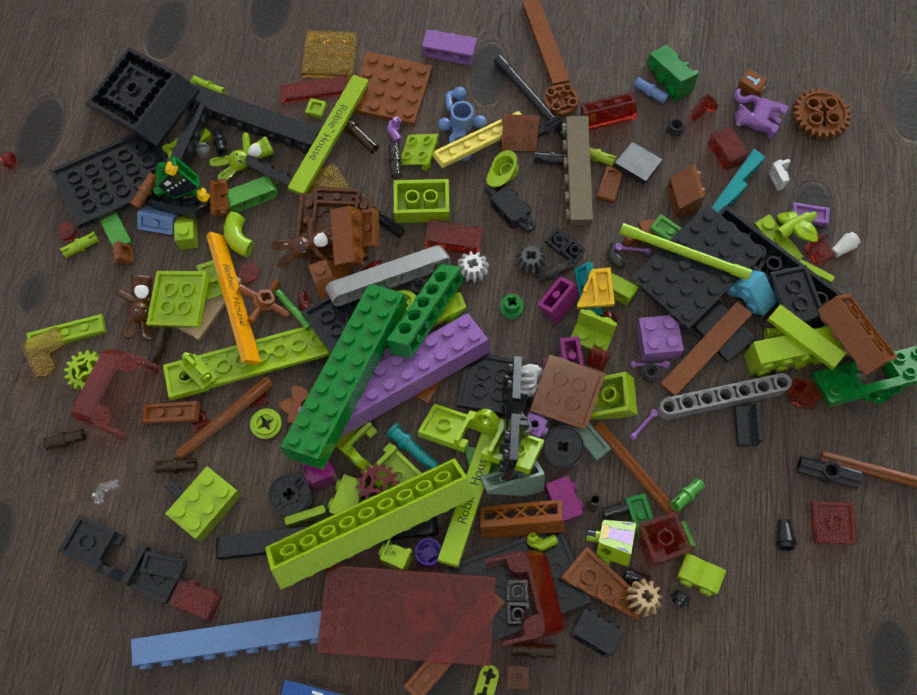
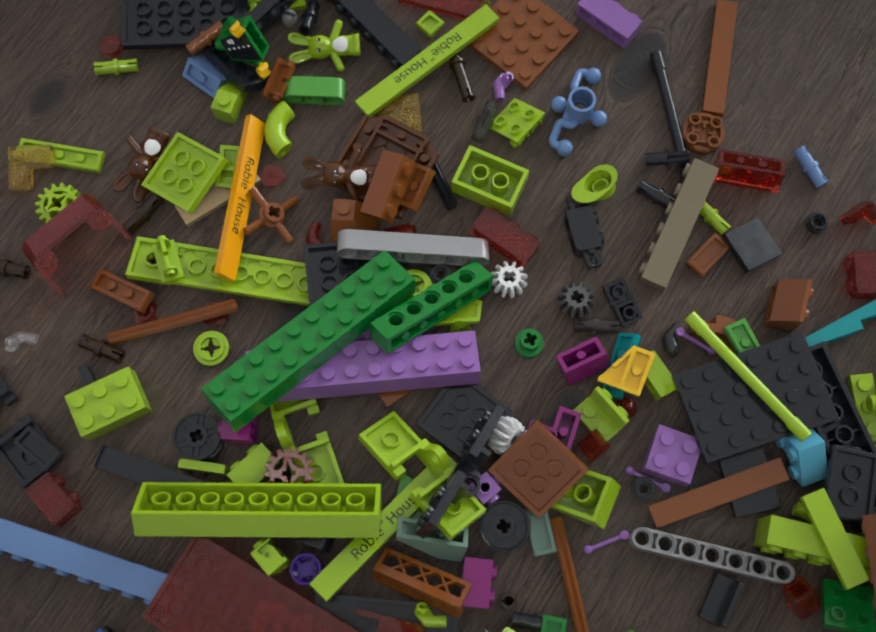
camera: 25 degrees right, 5 degrees up
(115, 229) = (159, 69): bright green tile -> none
(122, 253) = (154, 96): dark orange tile -> none
(268, 169) = (344, 71): black hinge -> none
(292, 308) = (296, 233): bright green bar -> none
(292, 404) = (249, 340): dark orange plate -> none
(406, 442) = (344, 437): teal pin -> none
(469, 144) = (588, 139): light yellow tile -> none
(519, 132) = (636, 151): dark orange hinge -> none
(672, 72) = (844, 157): green wedge -> none

